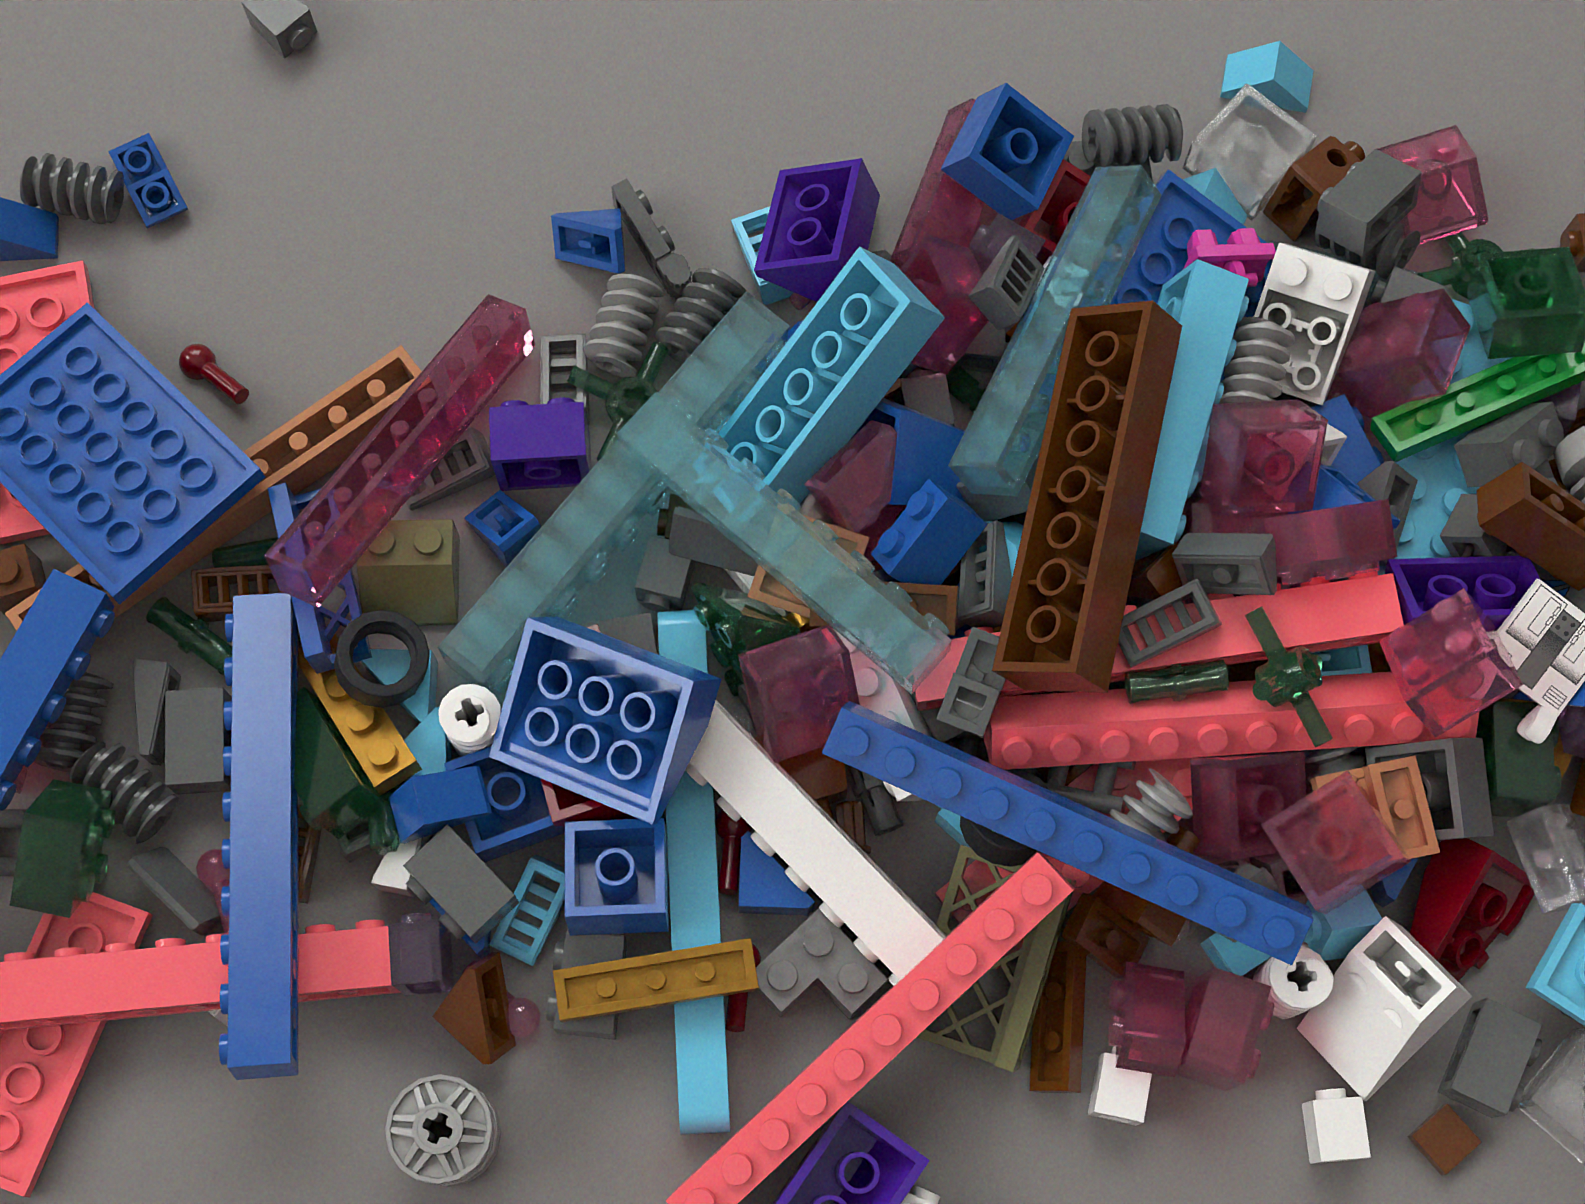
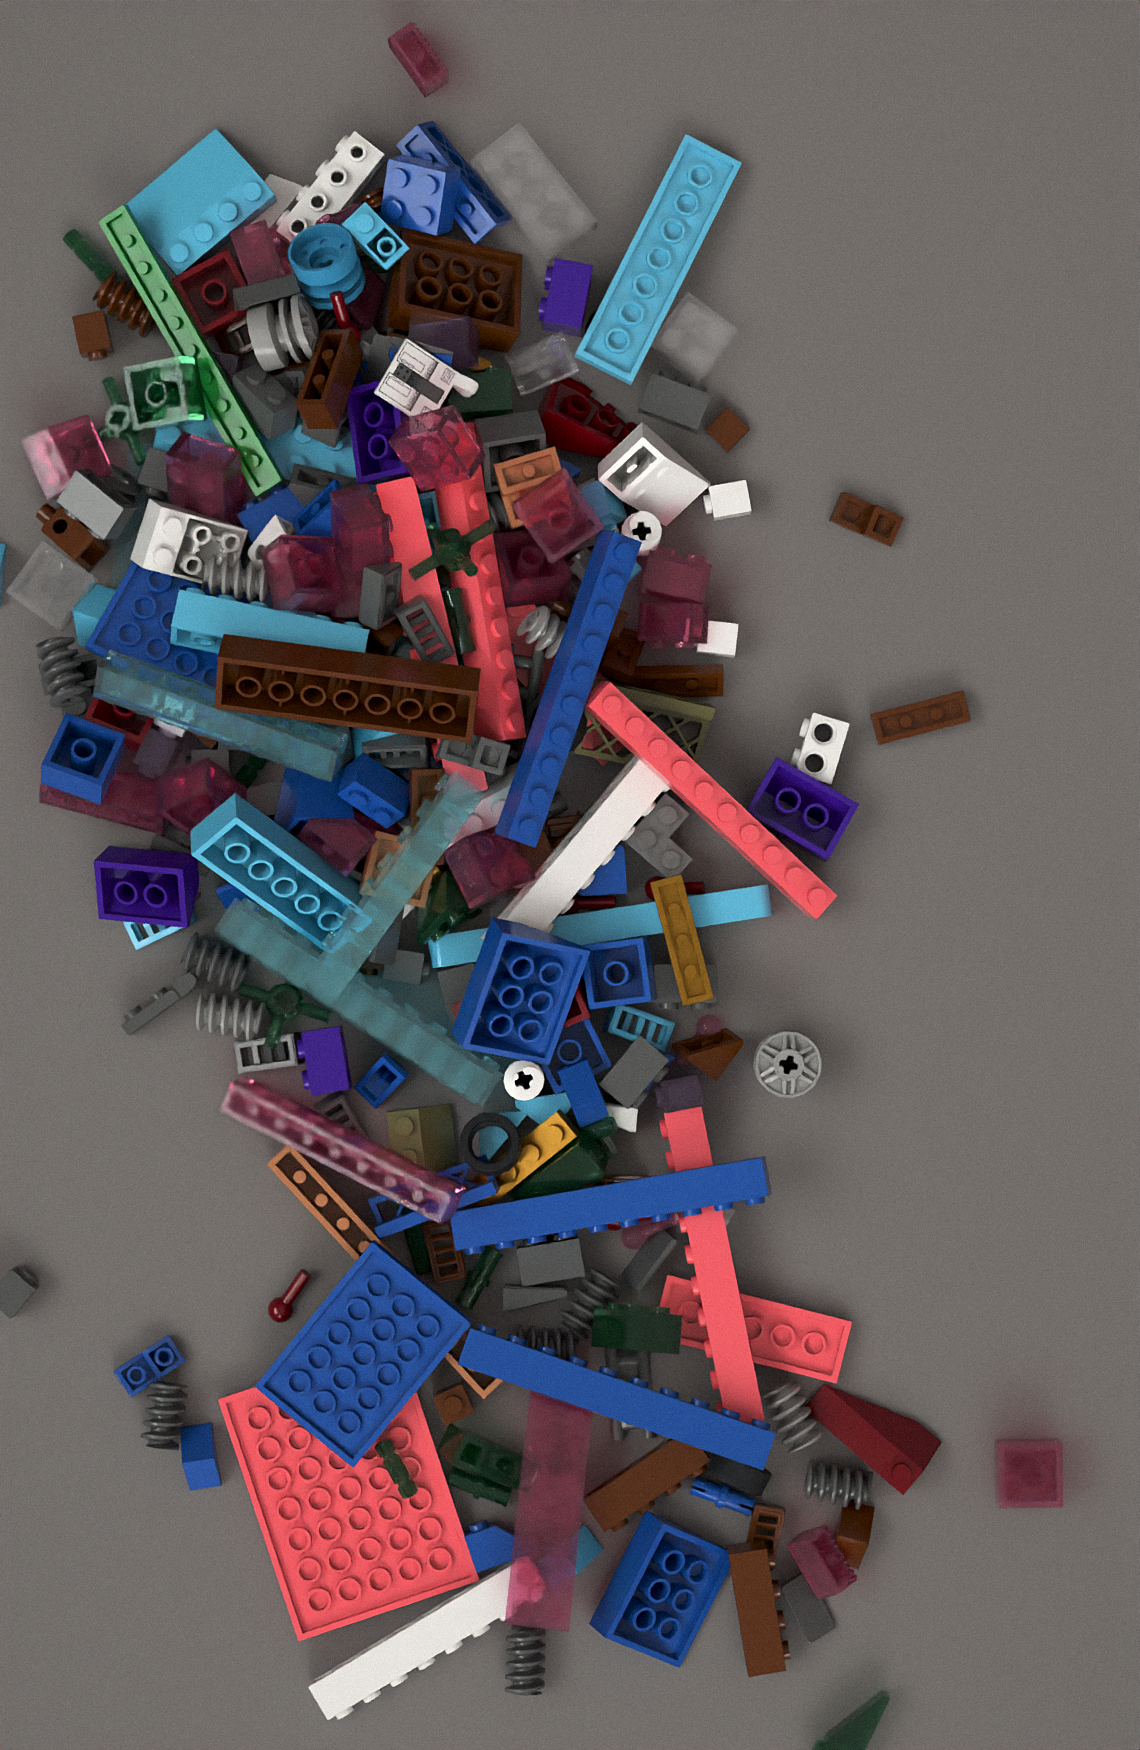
camera: 95 degrees left, 15 degrees up
(590, 239) = (166, 1045): blue slope -> none
(988, 292) = (205, 765): dark grey slope -> none
(1241, 254) = (156, 600): dark pink hips -> none

